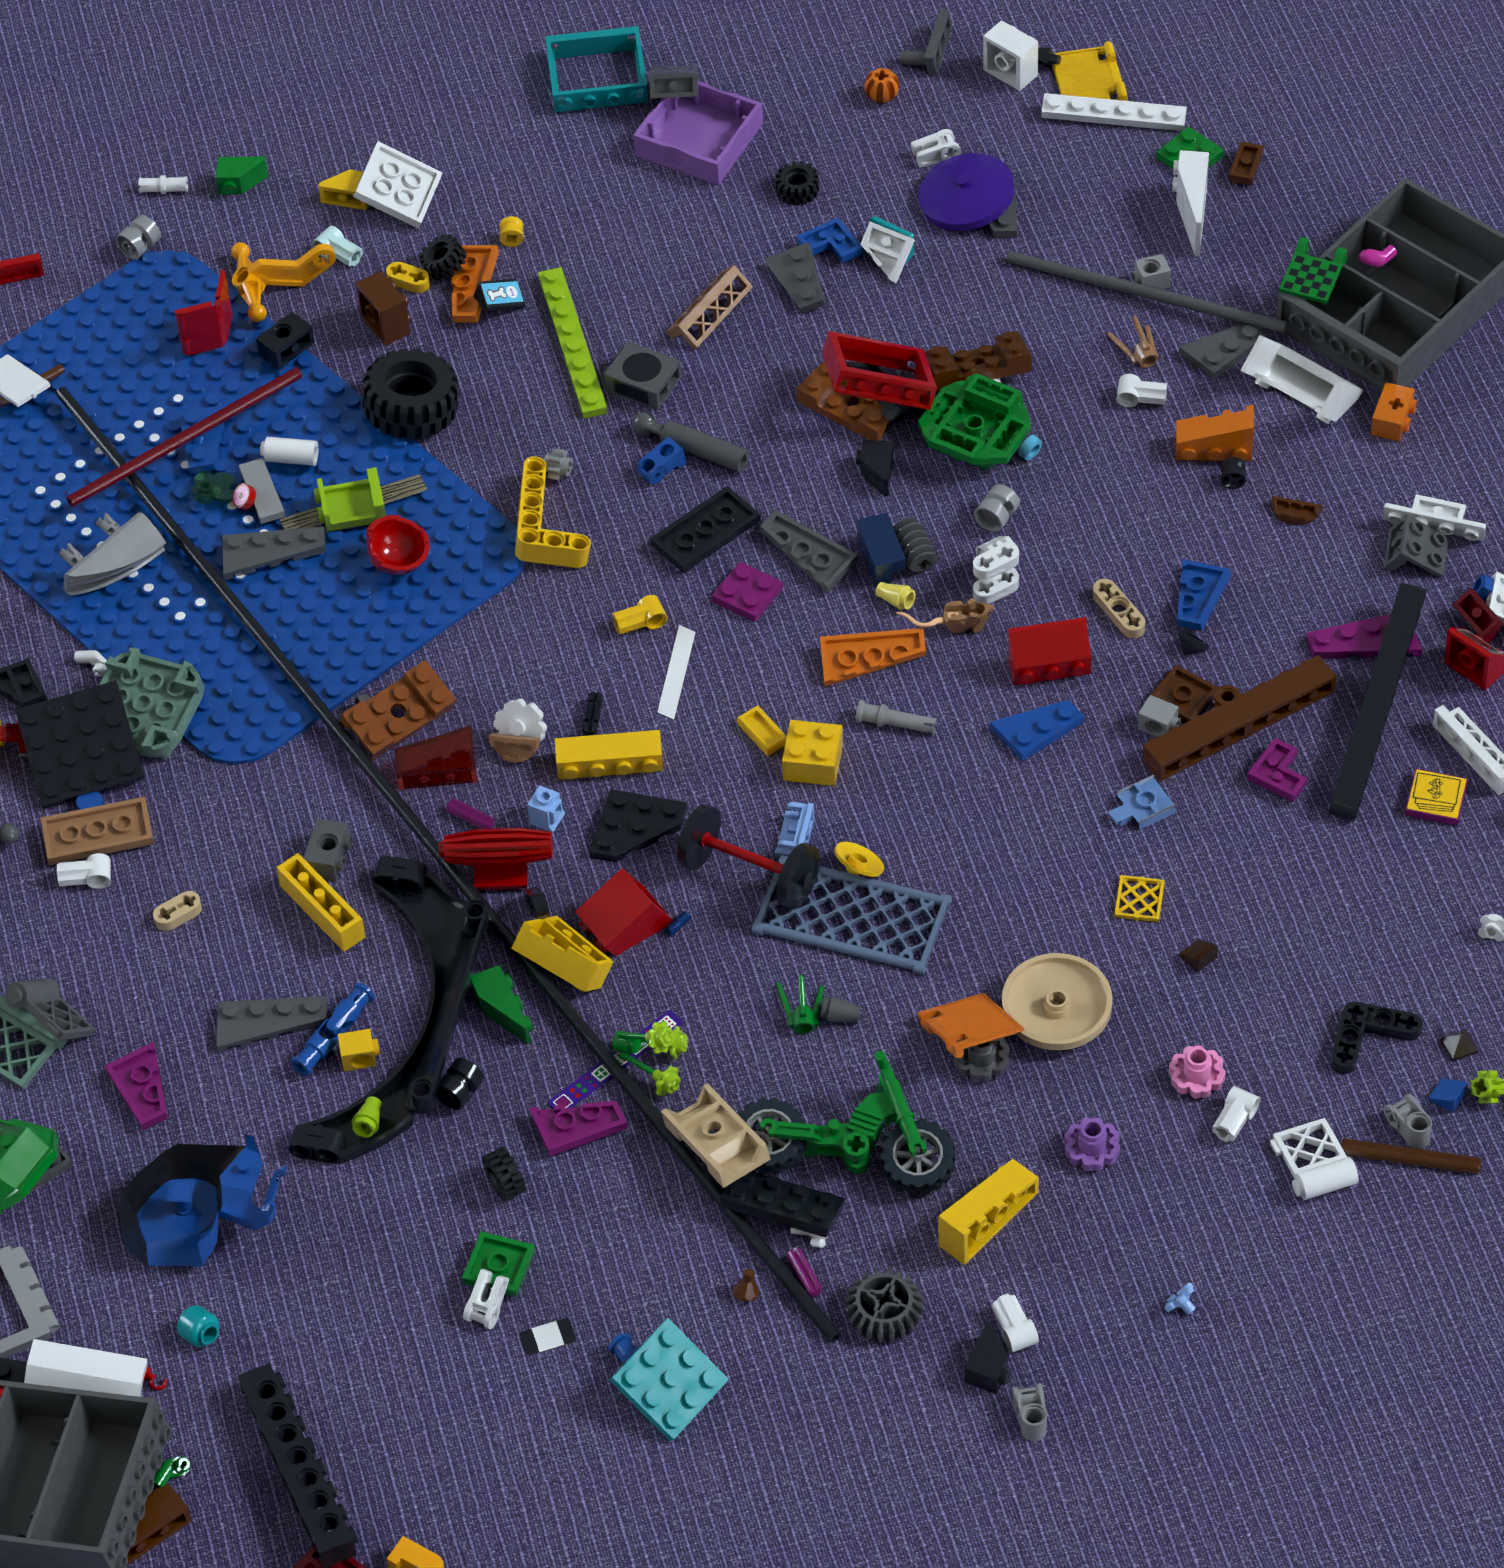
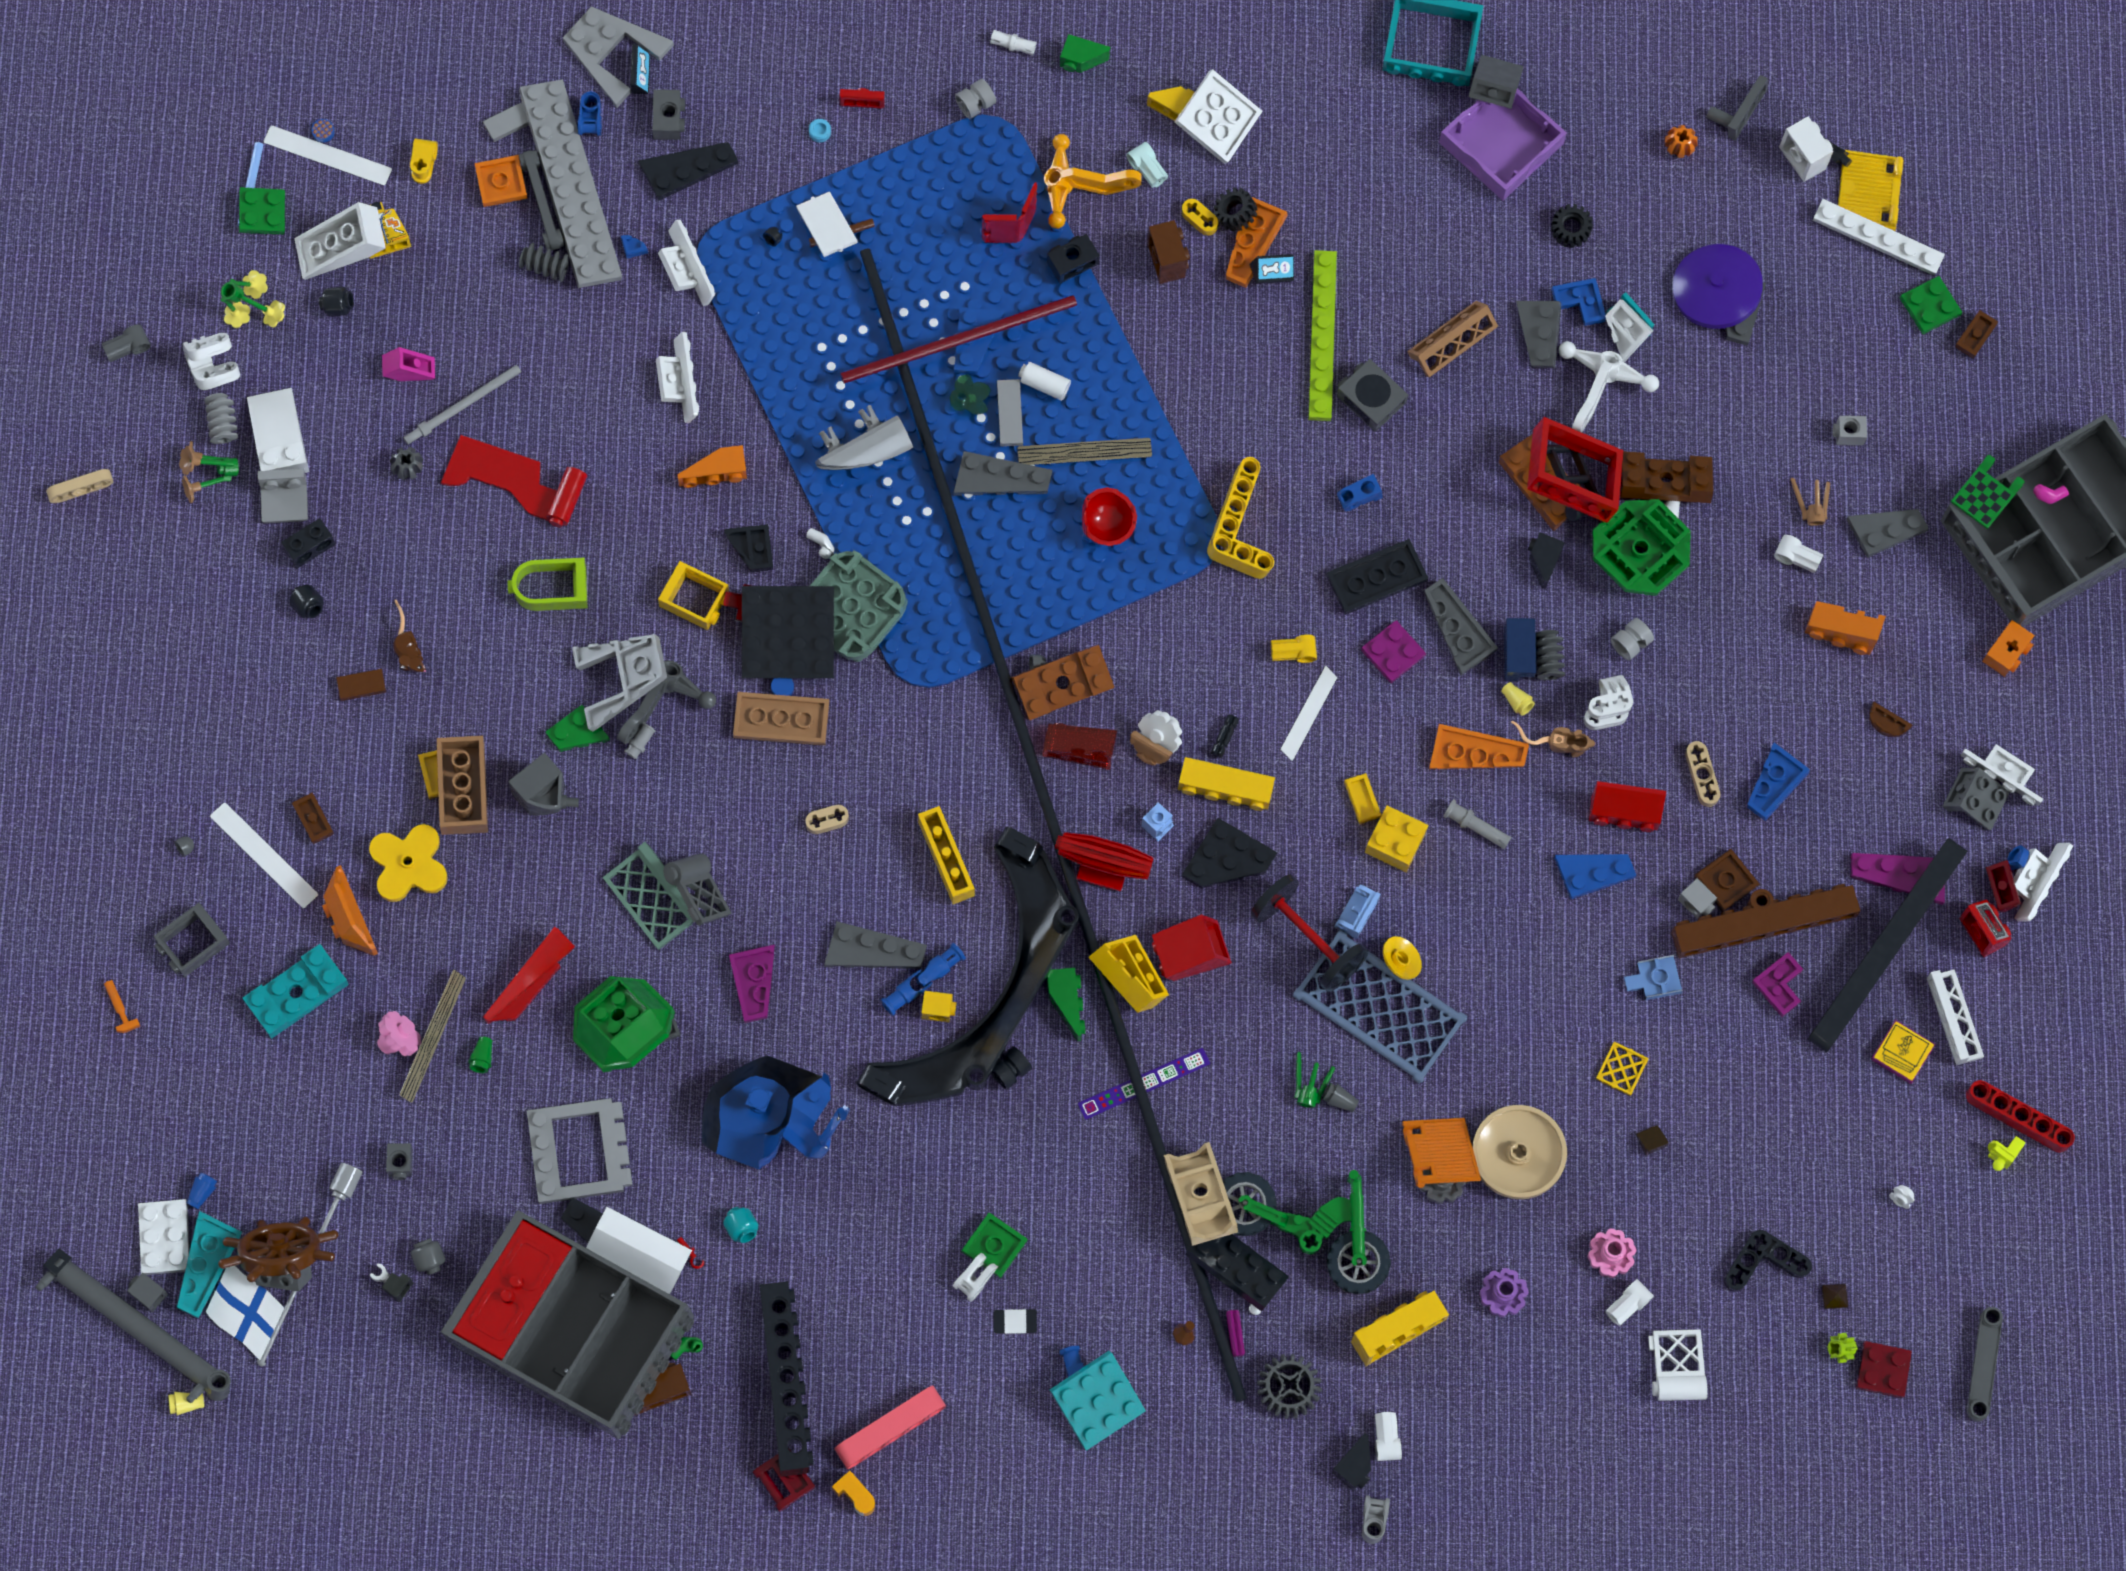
camera: 10 degrees right, 20 degrees up
(93, 872) = (766, 759): white piece -> none
(244, 496) = (992, 416): tile -> none
(328, 848) = (966, 789): dark grey brick -> none
(350, 503) = (1082, 452): lime panel -> none
(366, 1120) = (926, 1078): lime cone -> none
(410, 373) = (1173, 330): black tyre -> none
(436, 1482) = (890, 1427): none -> coral beam
(470, 814) = (1094, 803): magenta axle -> none
(503, 1174) = (1021, 1167): black tyre -> none
(511, 231) = (1304, 198): yellow wheel -> none
(536, 902) = (1122, 918): black beam -> none
(558, 464) = (1271, 467): light grey gear -> none
(575, 1126) = (1094, 1136): magenta wing -> none
(661, 1040) = (1183, 1091): lime plant -> none
(678, 923) = (1236, 966): blue piece -> none
(694, 441) = (1393, 480): dark grey piece -> none
(879, 287) = (1608, 368): none -> white piece
(934, 148) = (1709, 221): white piece -> none
(1030, 447) = (1682, 583): medium azure tile -> none
(1147, 292) = (1839, 448): dark grey piece -> none
(1181, 1300) = (1526, 1459): light blue plant -> none
(1191, 193) = (1917, 348): white slope -> none
(1191, 643) = (1752, 829): black slope -> none
(1233, 473) = (1847, 667): black wheel -> none
(1301, 379) = (1945, 590): white windscreen -> none
(1410, 1121) = (1767, 1351): light grey piece -> none
(1411, 1156) = (1757, 1388): reddish brown axle -> none
(1448, 1093) = (1808, 1340): blue slope -> none

